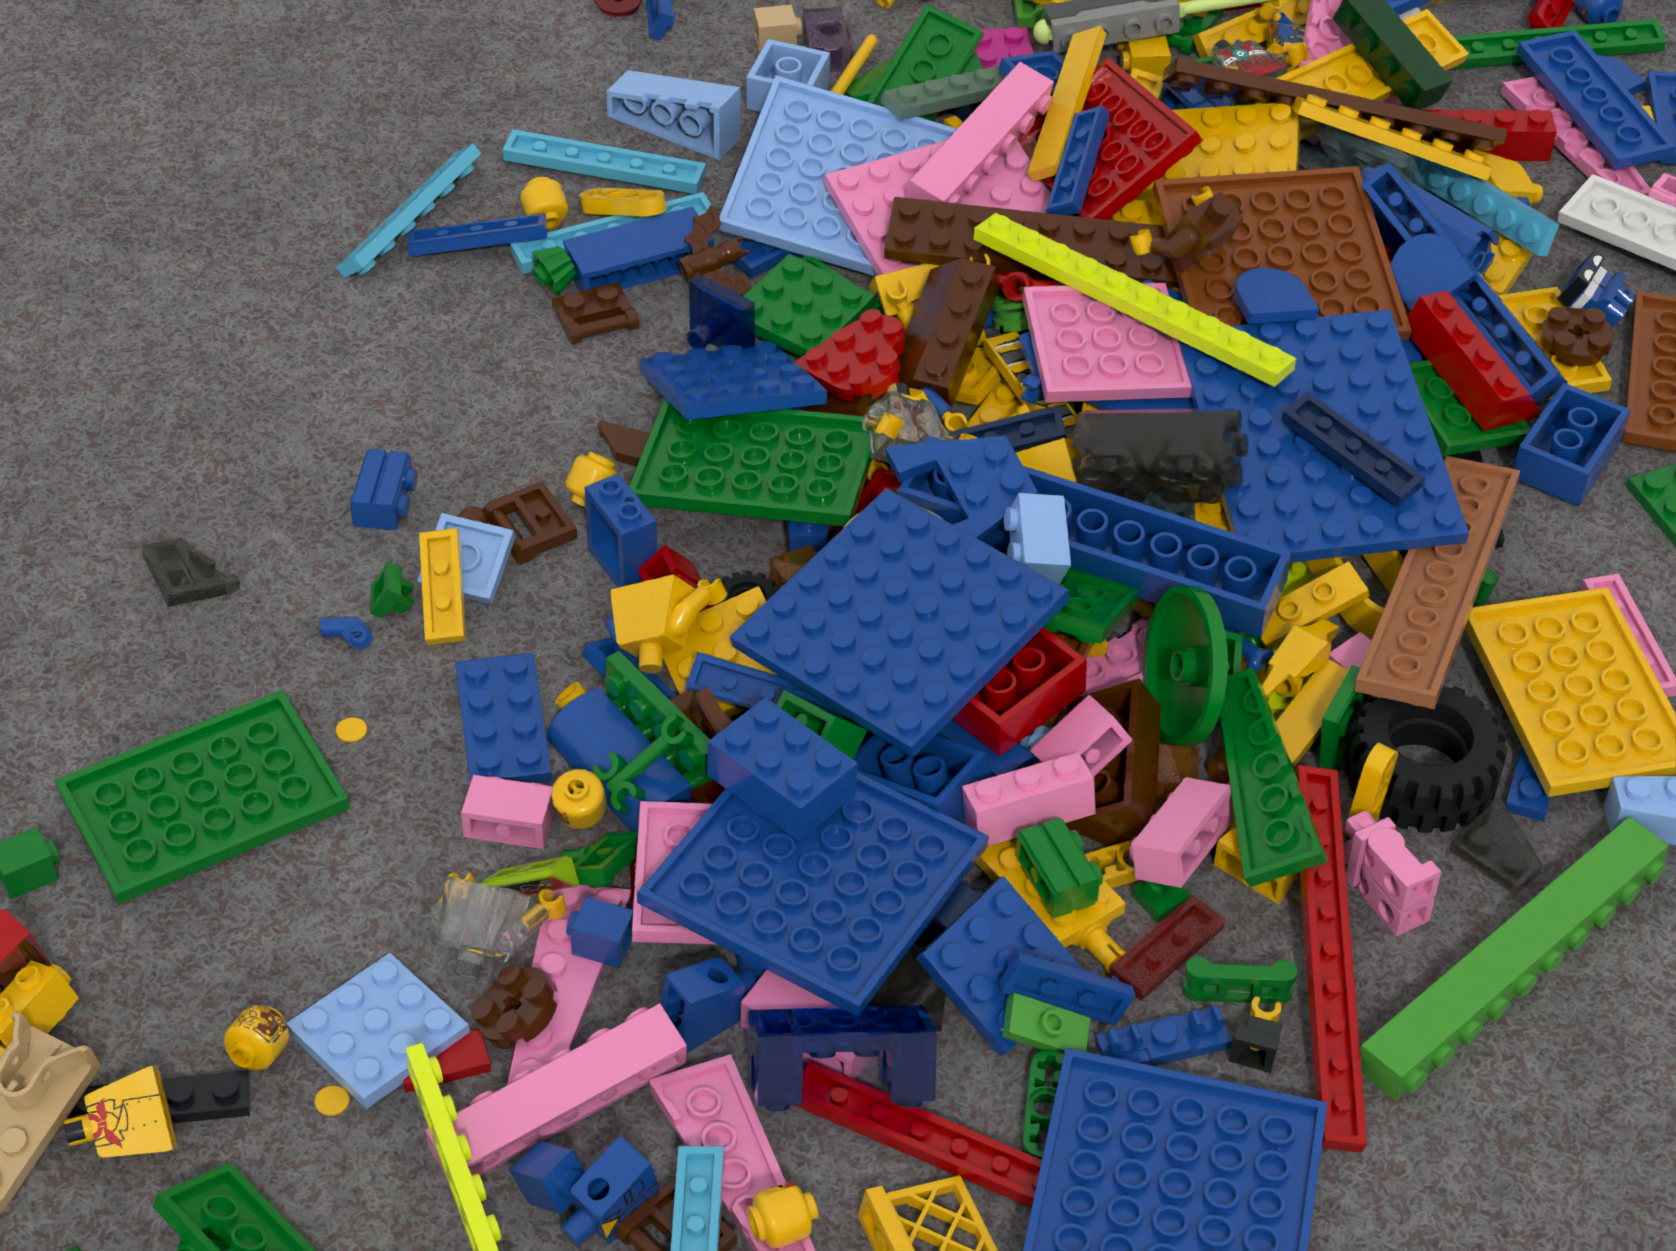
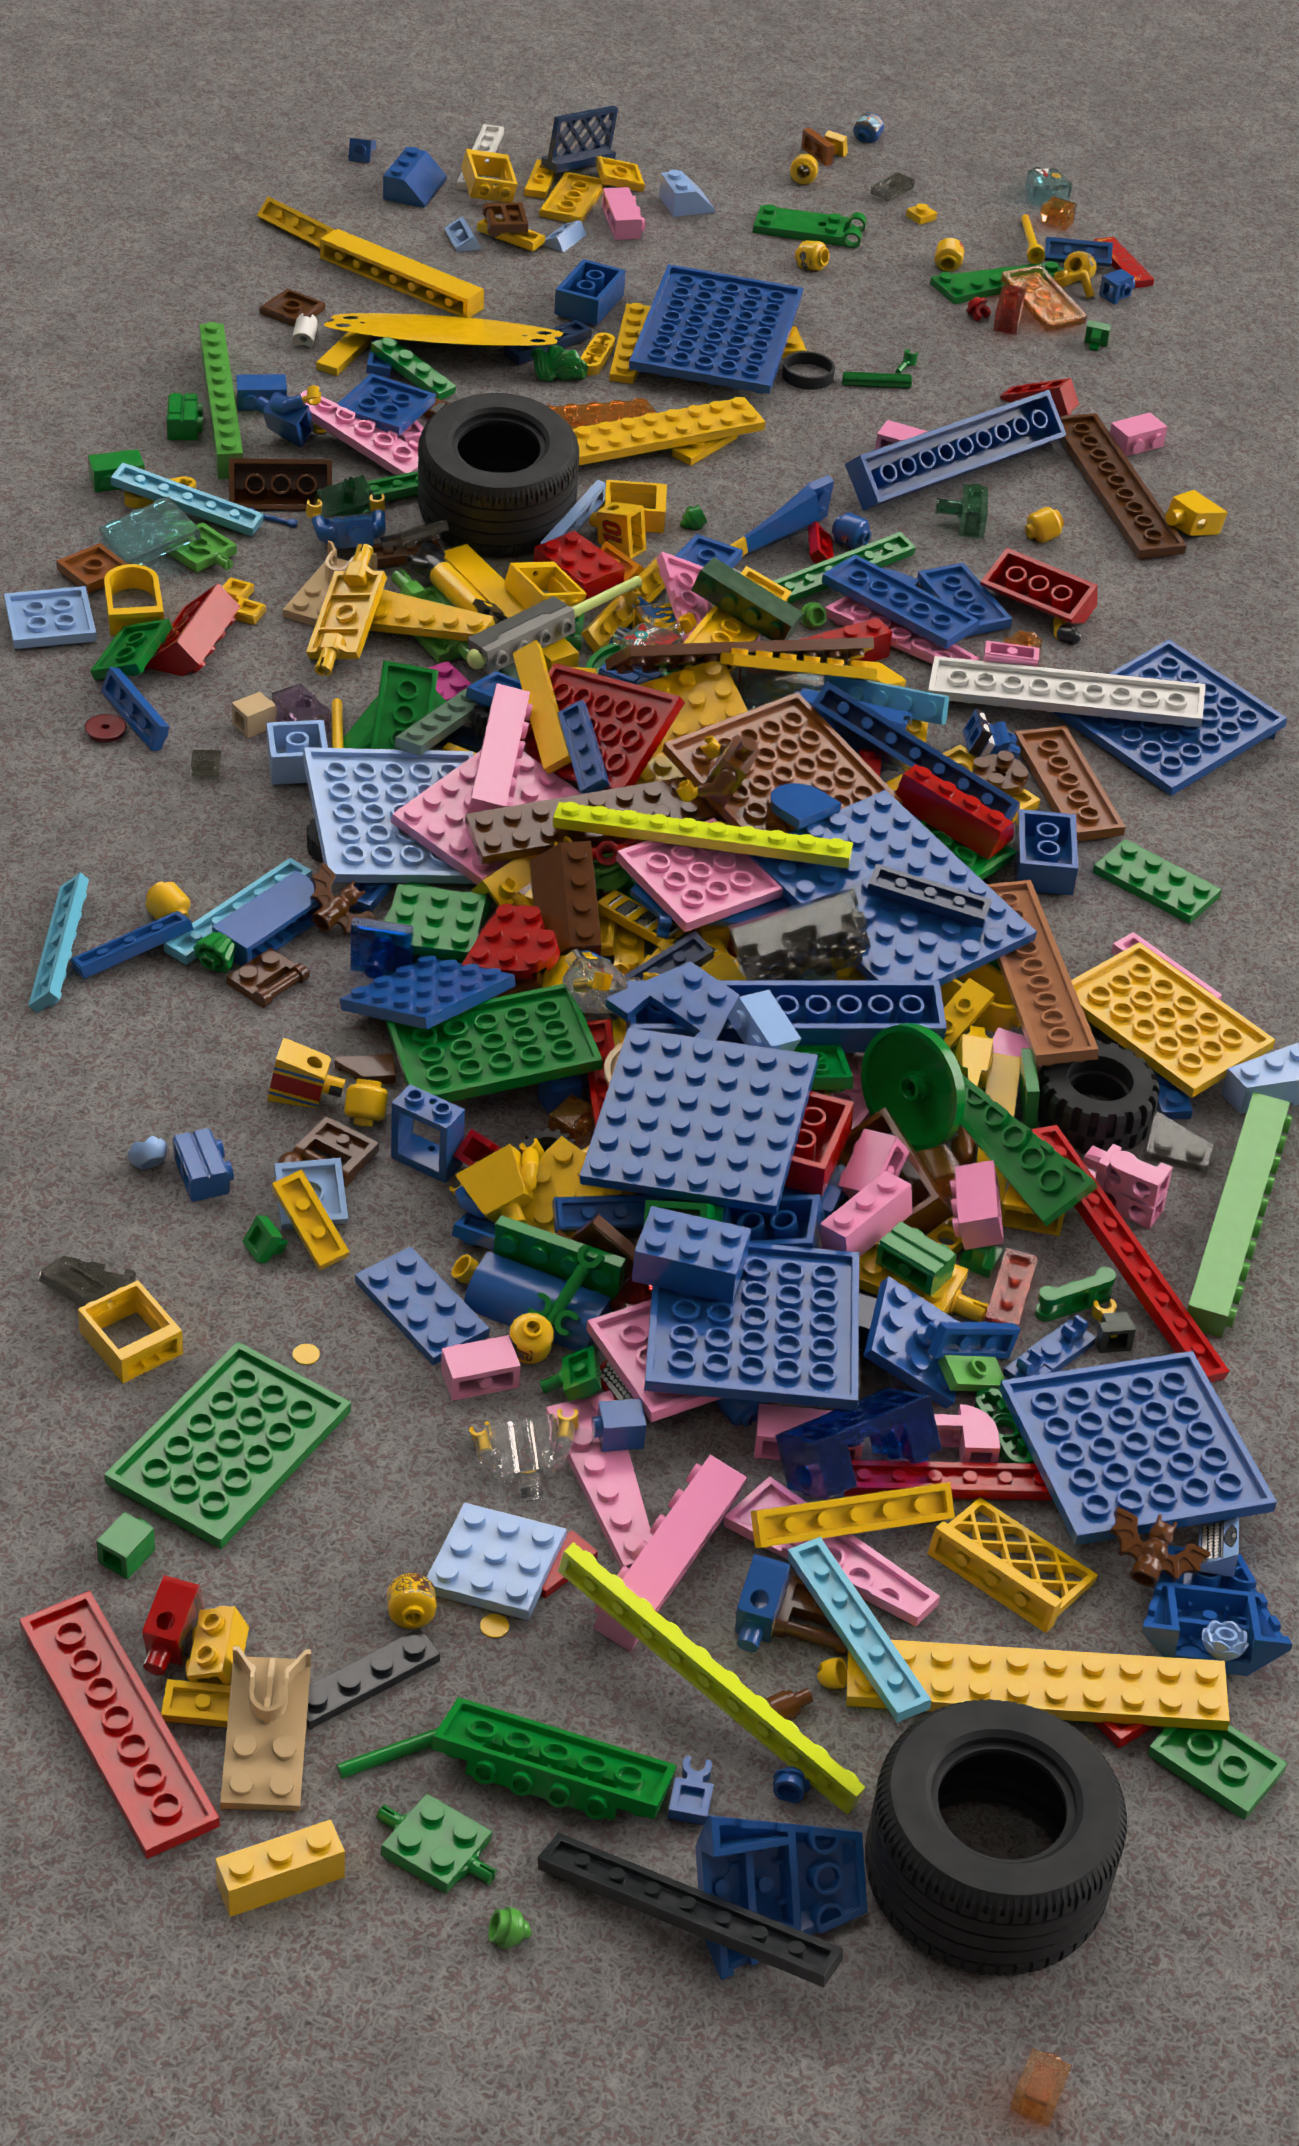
camera: 30 degrees left, 5 degrees down
(110, 1192) = (385, 1754): none -> green bar
(126, 1117) = (361, 1693): yellow torso -> none
(190, 667) = (142, 1354): none -> yellow window
(338, 459) = (148, 1153): none -> light blue plate
(348, 628) = (252, 1279): blue arm -> none
(496, 1012) = (580, 1489): reddish brown plate -> none
(533, 877) = (545, 1402): lime slope -> none
(542, 428) = (302, 1076): none -> yellow torso
(547, 1176) = (706, 1609): blue brick -> none
(604, 161) = (189, 857): medium azure plate -> none
(623, 202) = (234, 883): yellow beam -> none
(679, 110) = (225, 799): light blue wedge -> none
(691, 65) = (206, 763): none -> clear smoke plate
(705, 999) = (731, 1435): blue torso -> none
(782, 1215) = (891, 1567): yellow head -> none
(783, 1136) = (852, 1514): none -> yellow plate
(994, 1095) = (971, 1432): none -> bright pink brick
(1374, 782) = (1087, 1123): yellow beam -> none
(1429, 266) = (892, 752): blue tile -> none
(1484, 88) = (813, 615): none -> bright green plate

